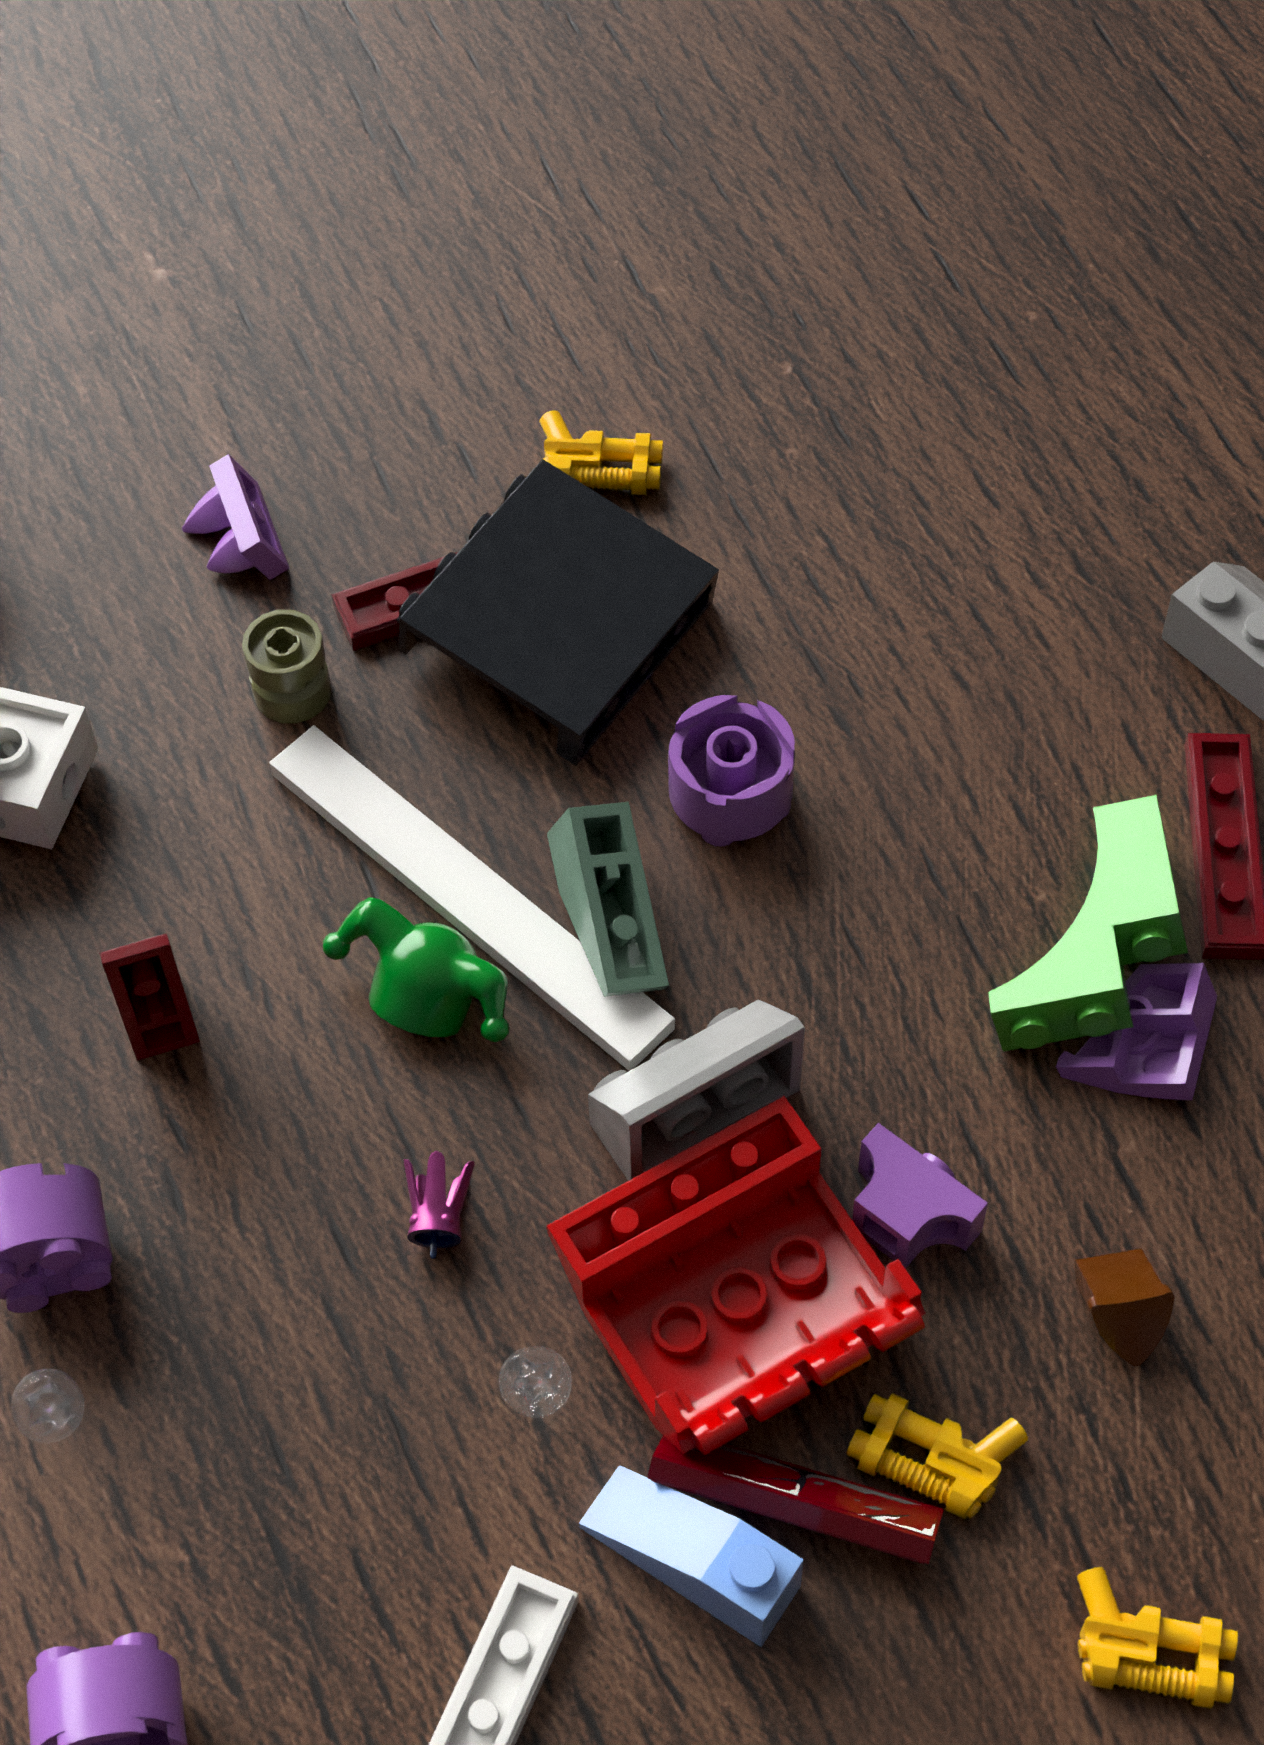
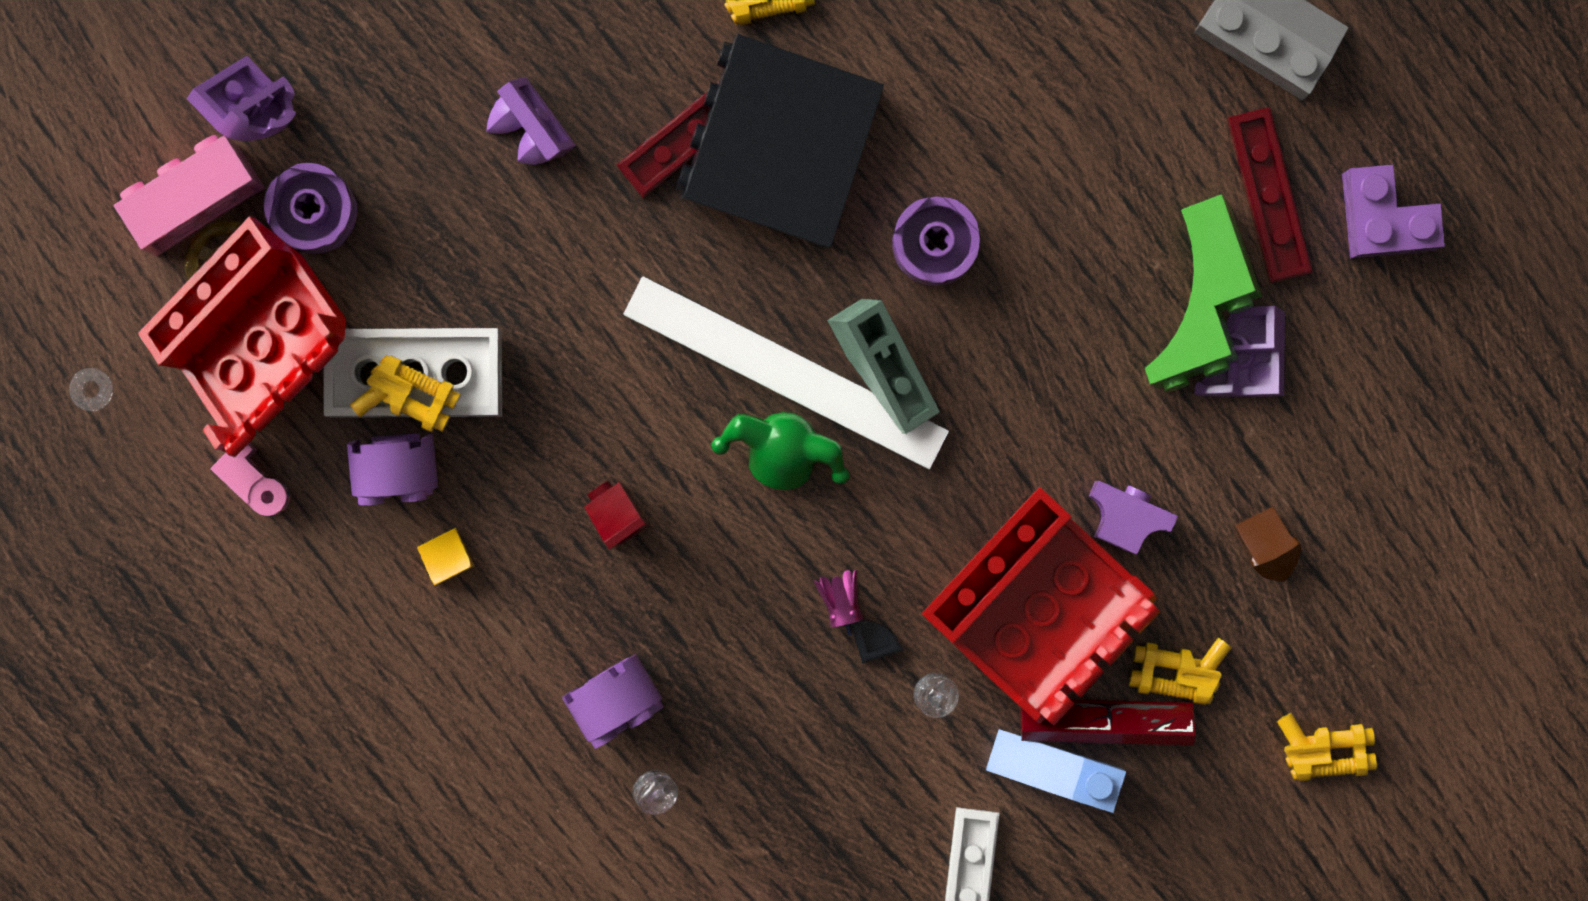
camera: 20 degrees left, 30 degrees up
(287, 666) = (611, 240): olive wheel -> none
(467, 1281) = (874, 640): none -> black tile
(698, 1086) = (977, 479): light grey slope -> none

